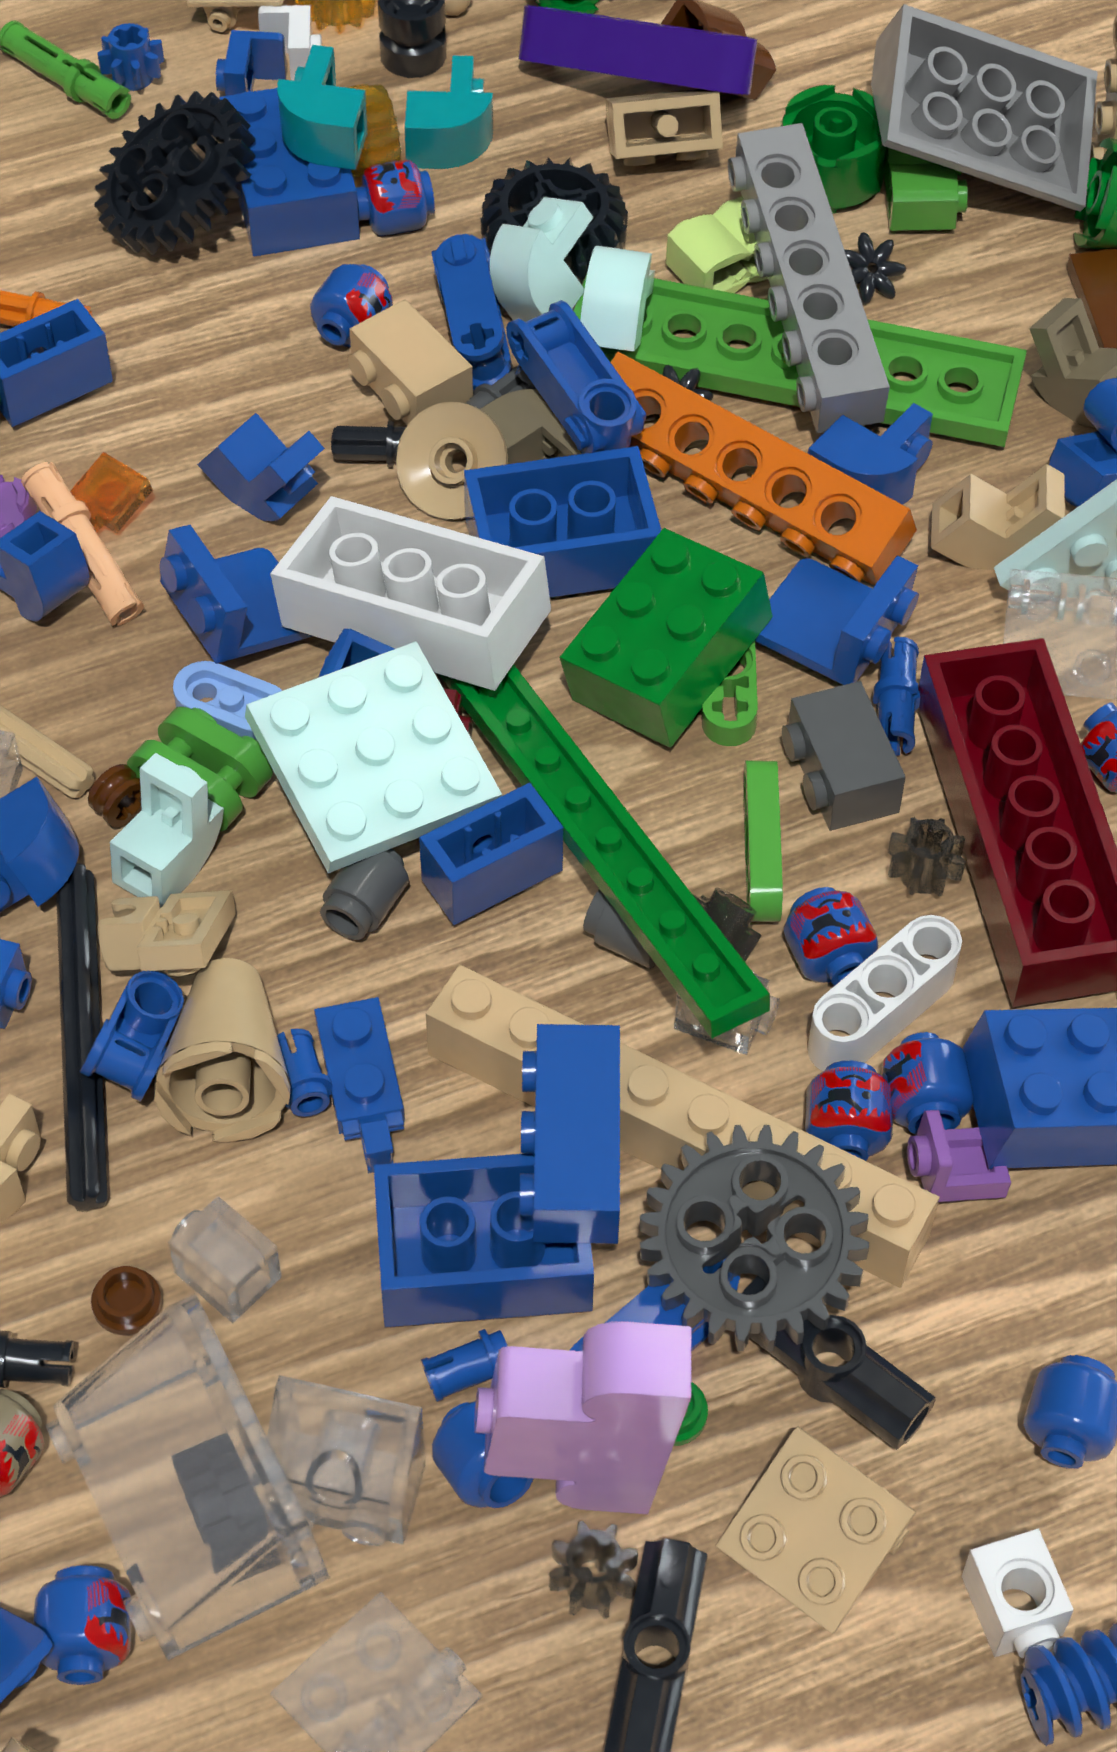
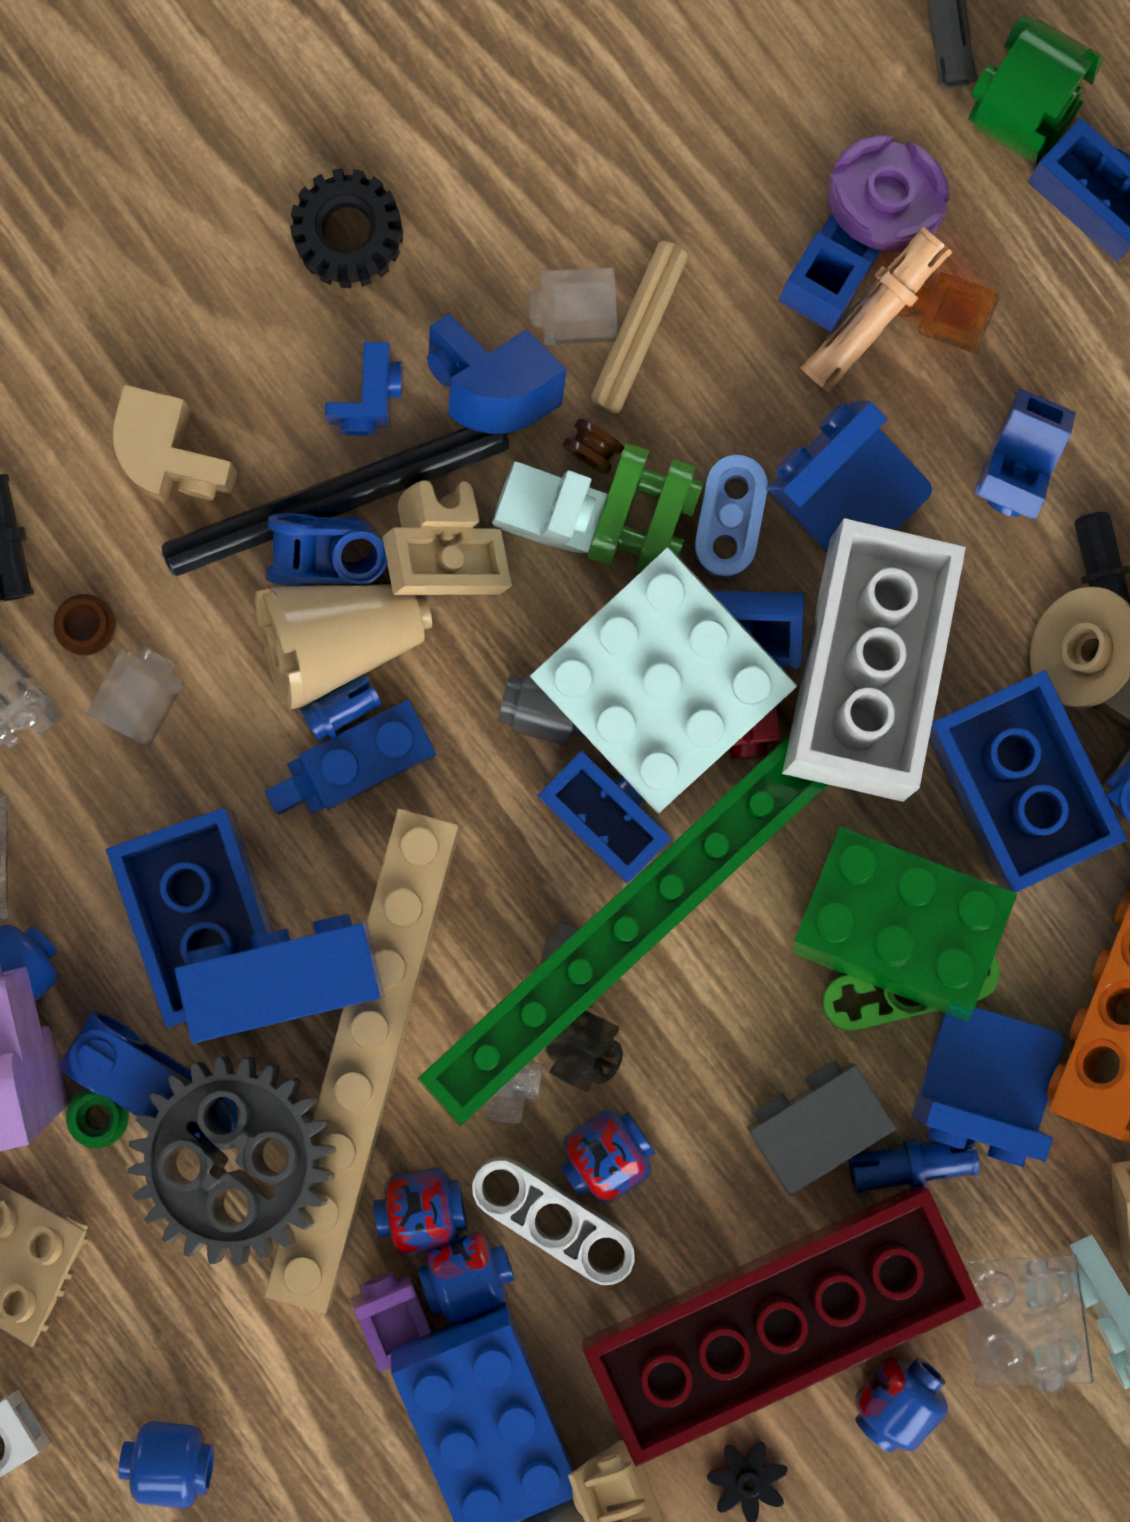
camera: 80 degrees right, 30 degrees up
(463, 1365) = (95, 936): blue pin -> none
(763, 840) = (701, 1068): bright green beam -> none
(863, 1387) = (149, 1278): black piece -> none
(926, 856) = (715, 1246): clear smoke gear -> none

